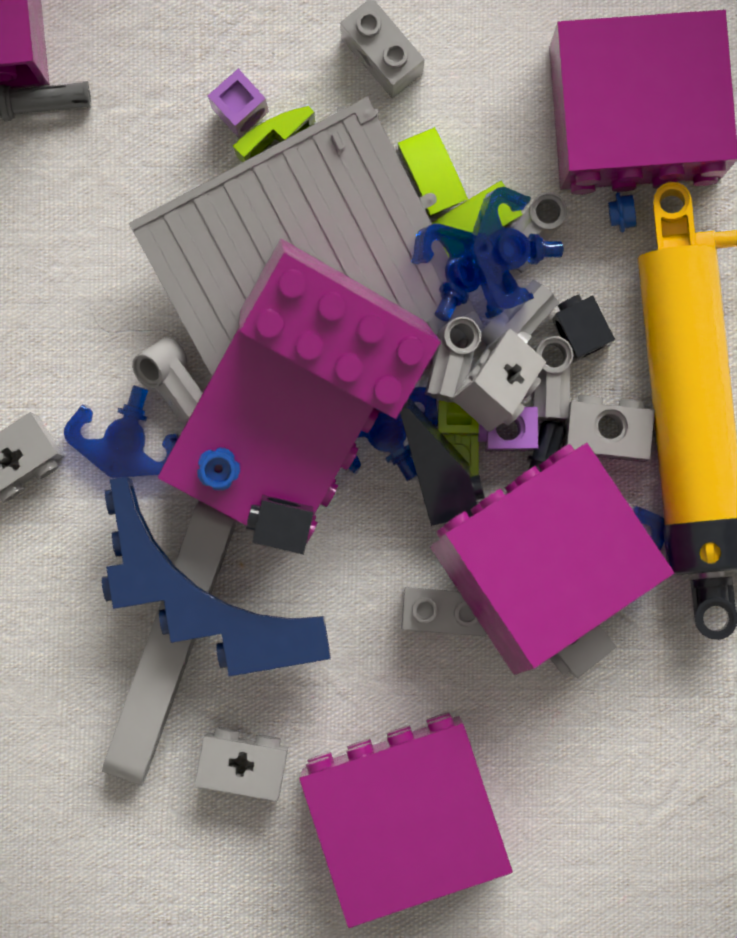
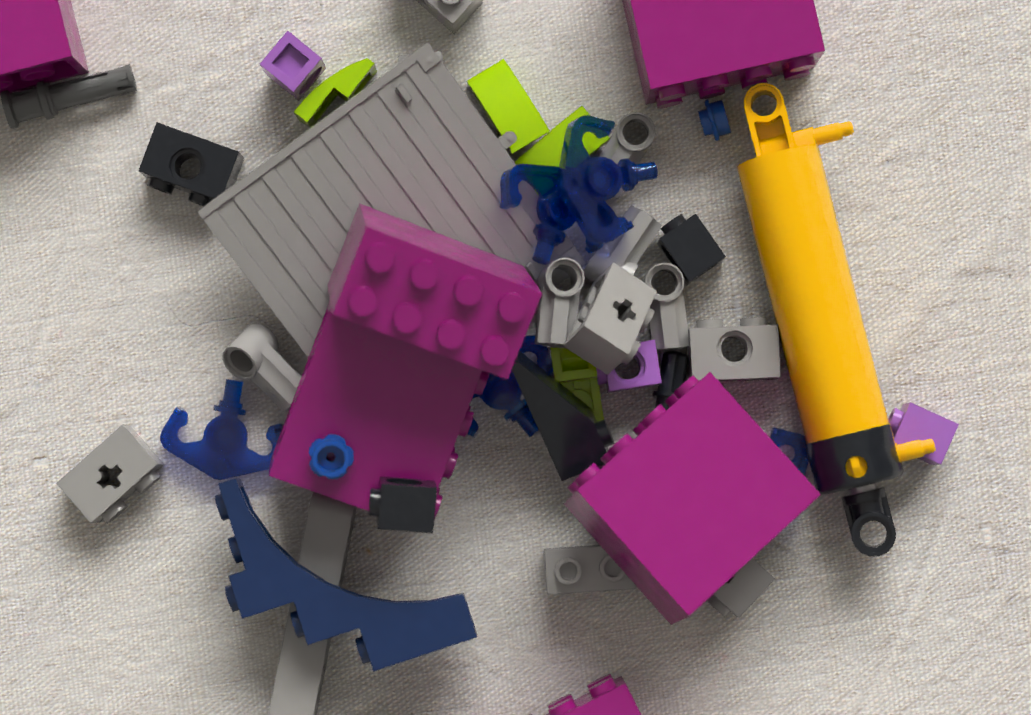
camera: 10 degrees left, 0 degrees up
(114, 164) = (172, 147): none -> black brick

